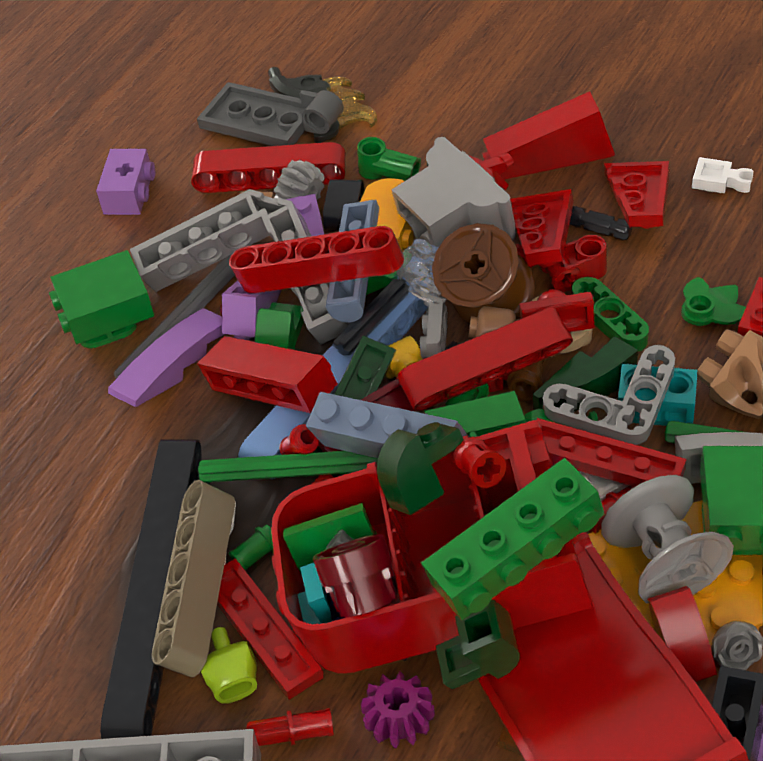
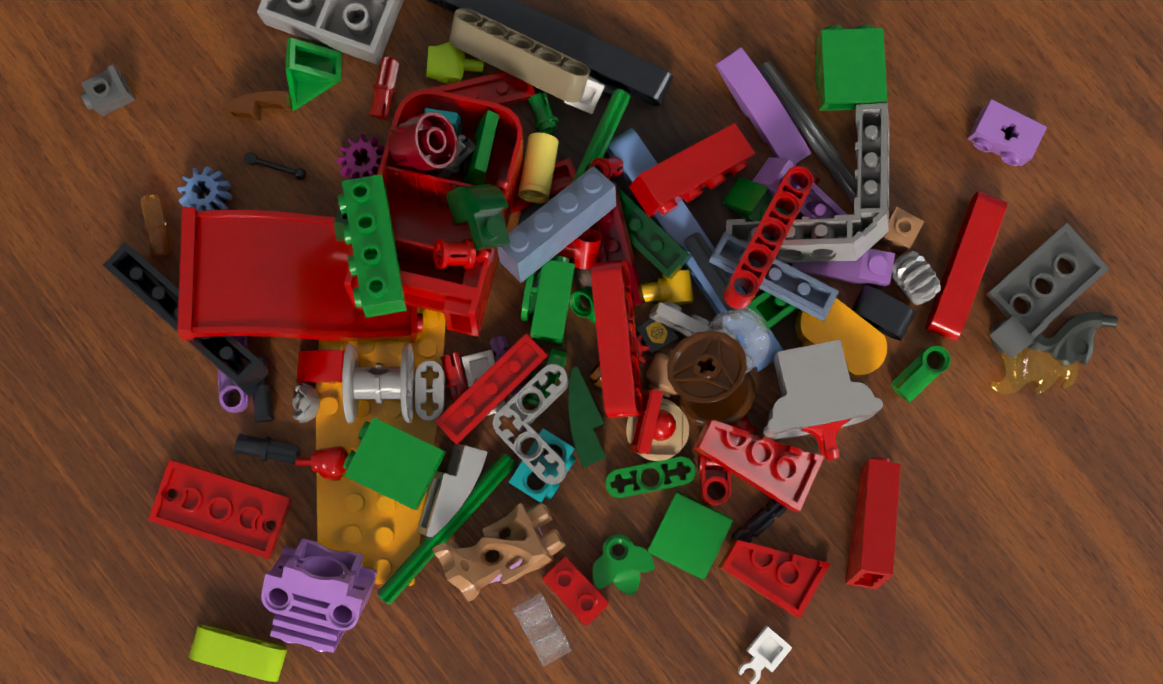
camera: 100 degrees right, 35 degrees up
(646, 262) = (690, 535): none -> green slope

